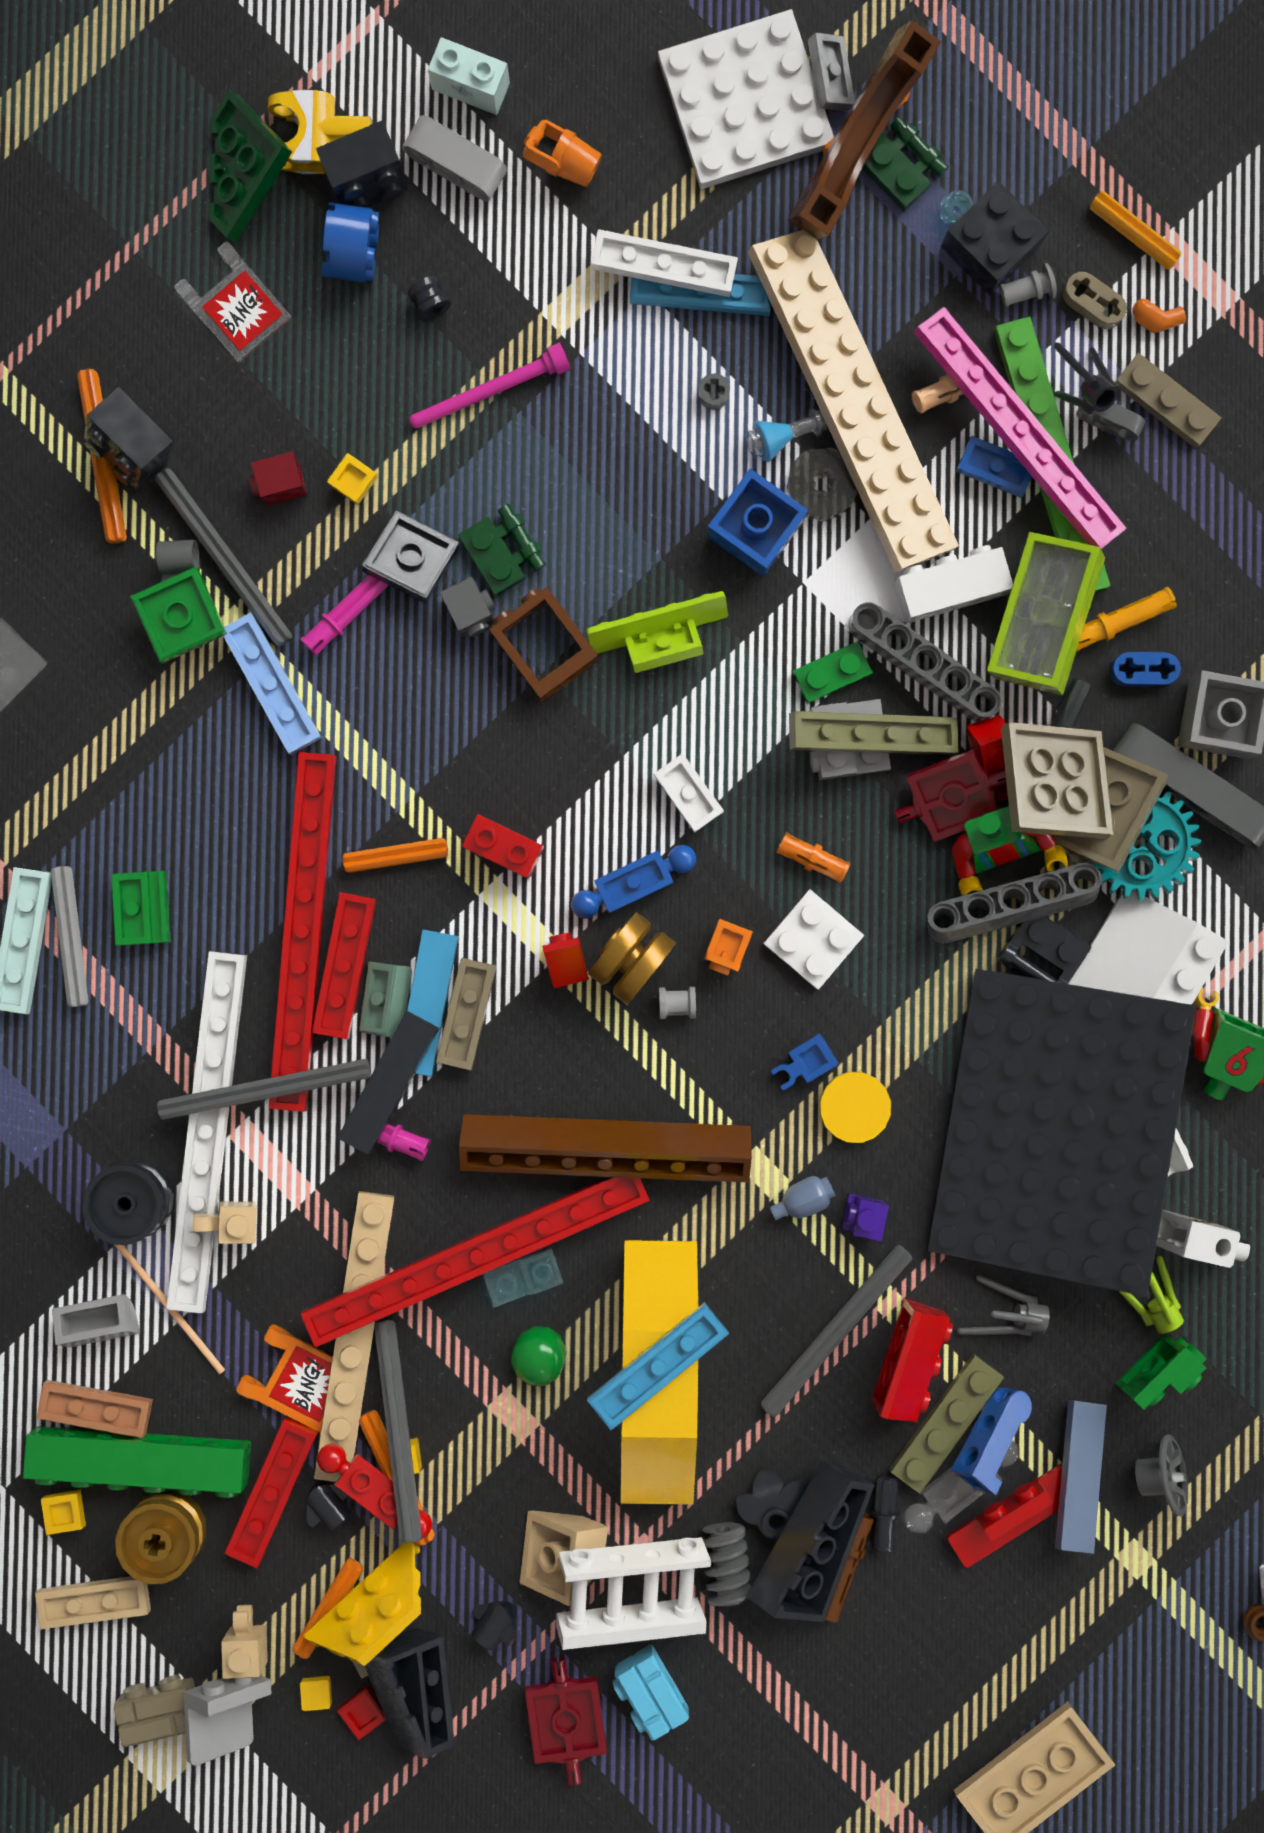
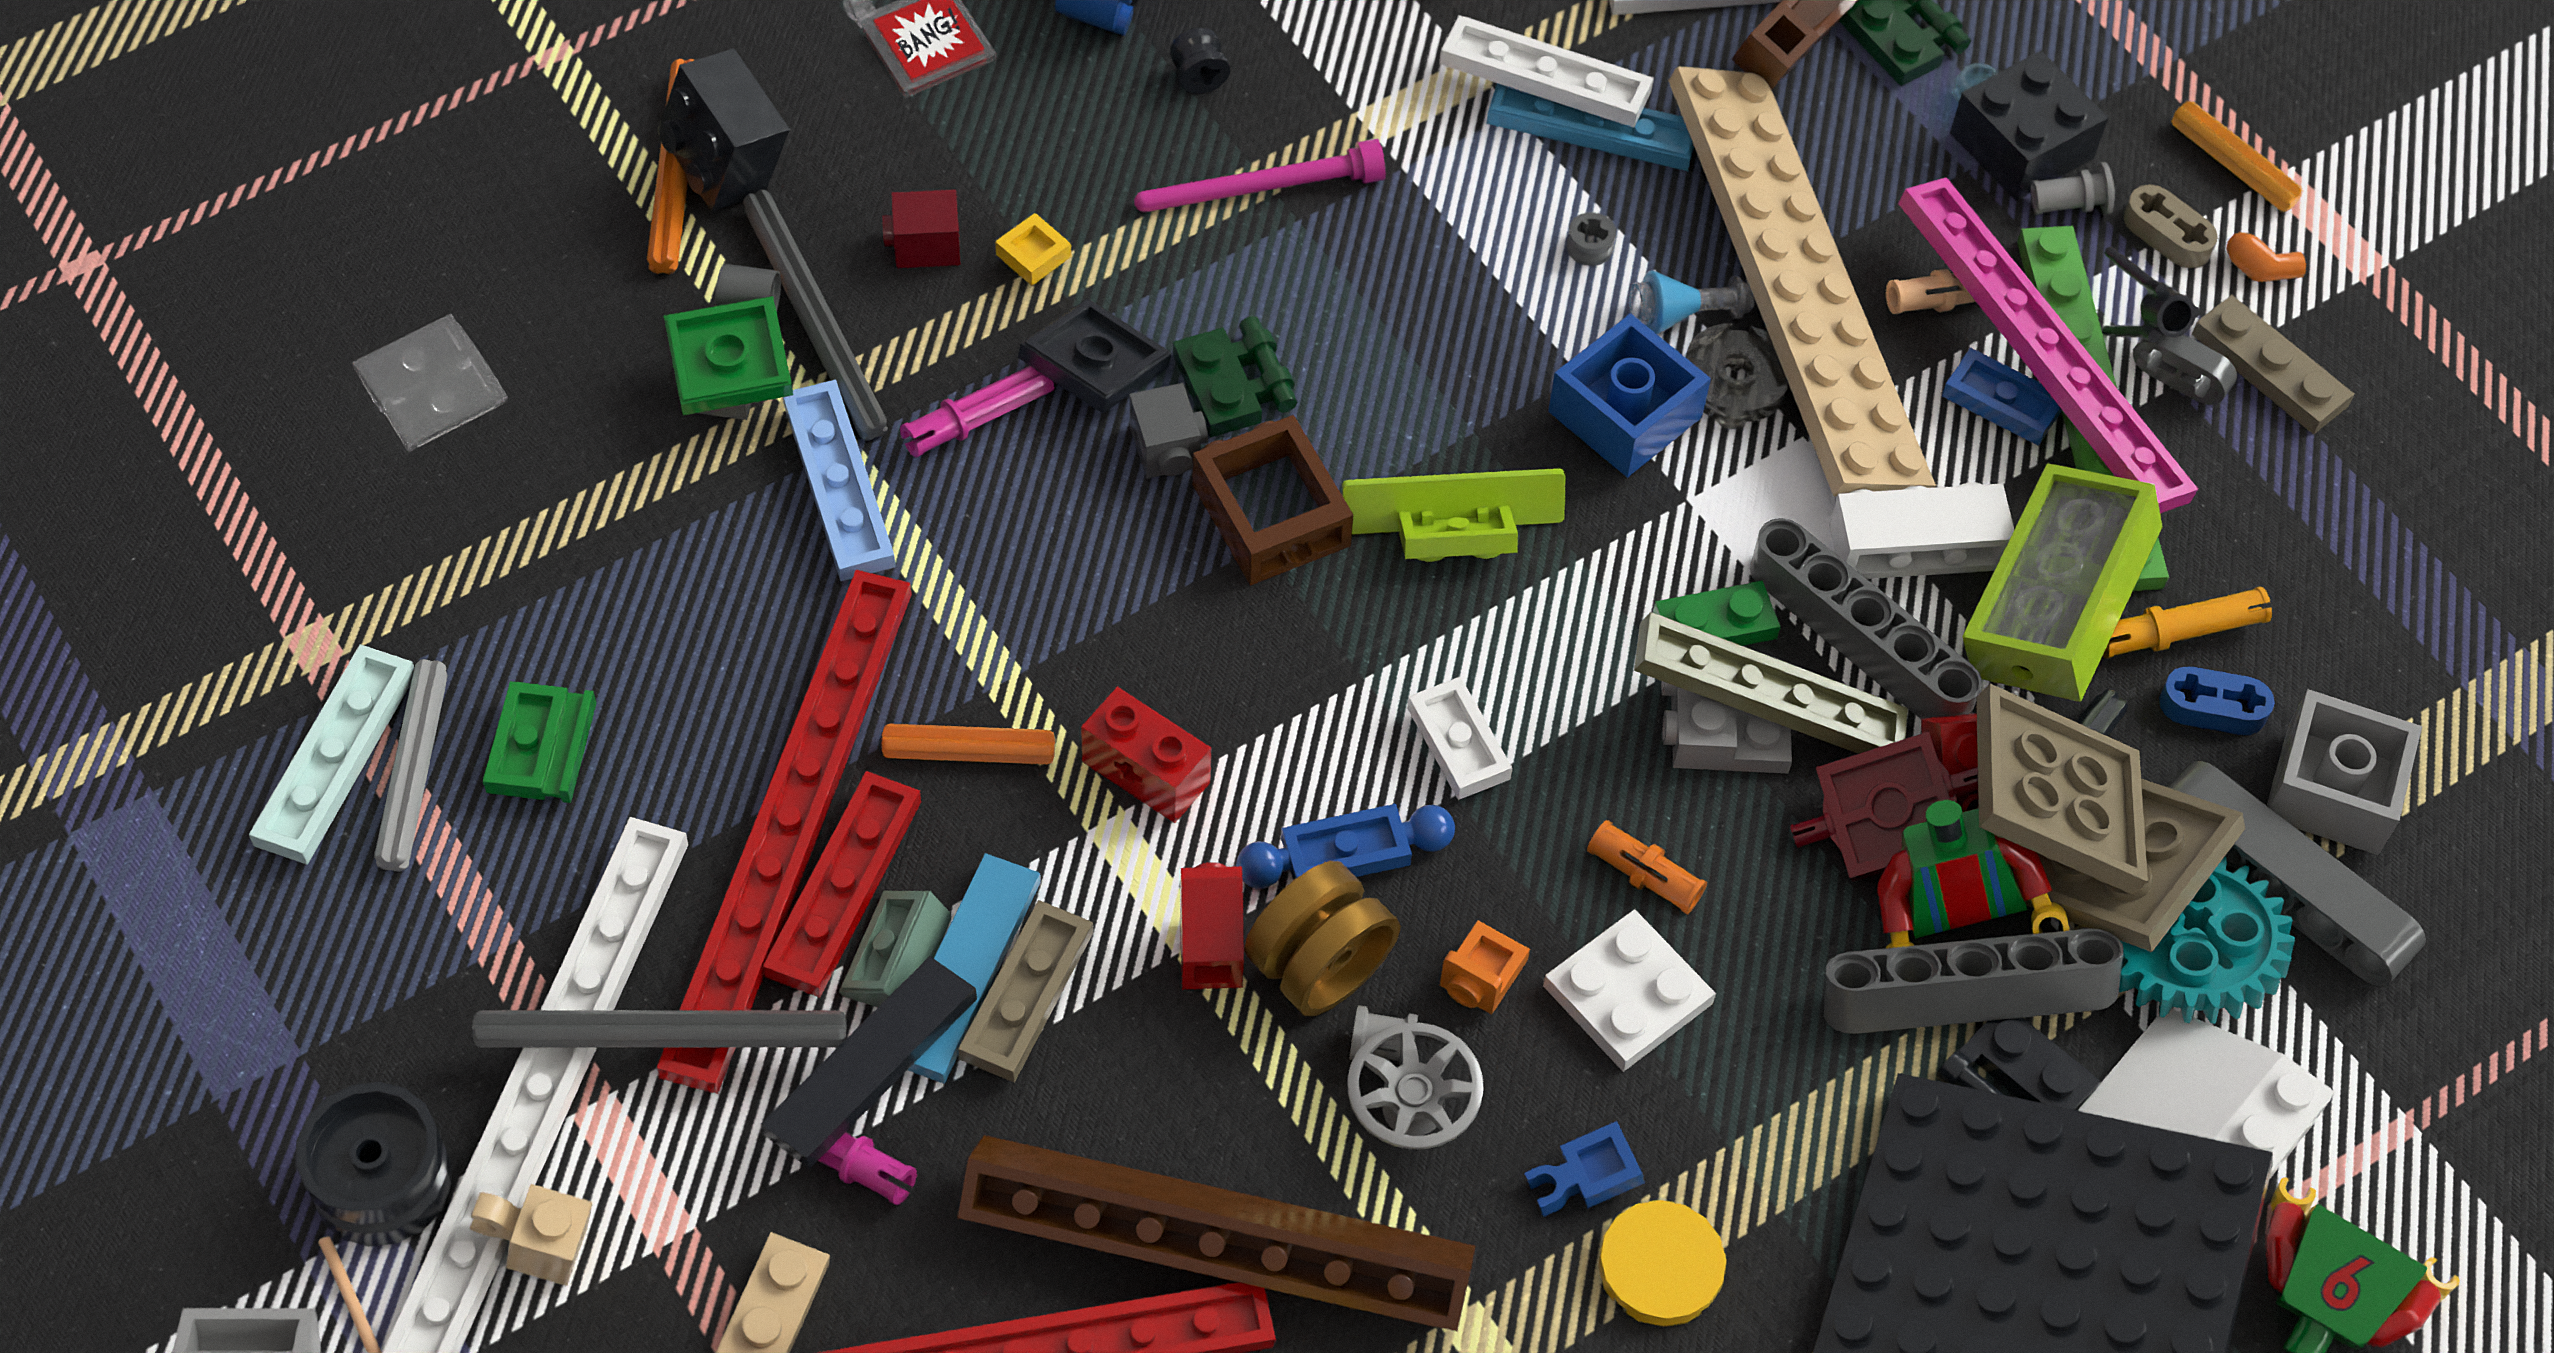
camera: 10 degrees right, 30 degrees down
(701, 1038) = (1415, 1091): none -> light grey wheel

